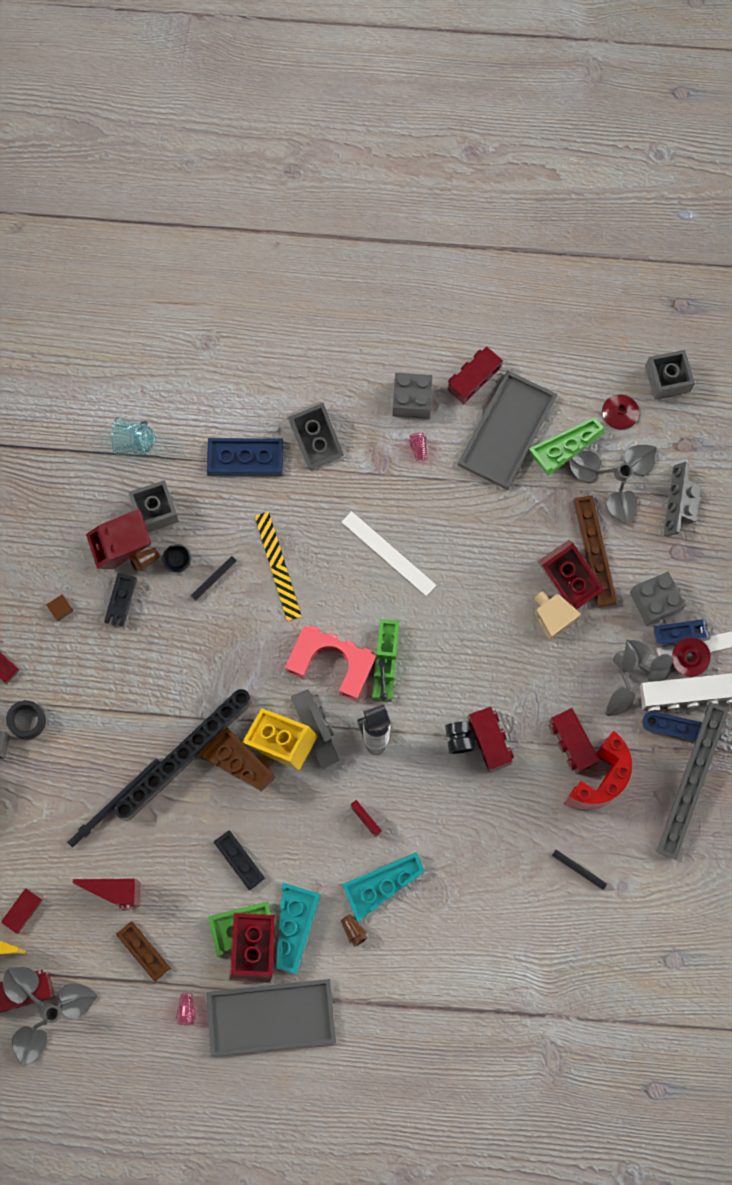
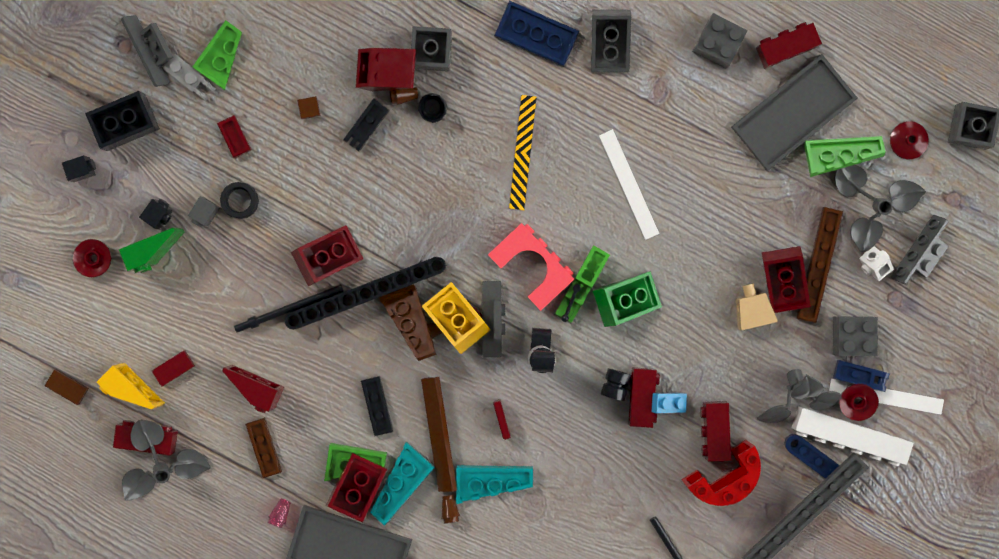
camera: 25 degrees right, 15 degrees up
(131, 736) = (327, 255): none -> dark red slope
(213, 578) = (459, 139): black bar -> none
(311, 860) = (439, 434): none -> reddish brown tile
(418, 445) = (703, 92): clear pink cone -> none
(433, 655) = (627, 299): none -> green slope
(517, 732) = (669, 402): none -> dark azure plate
(644, 526) = (876, 263): none -> white brick

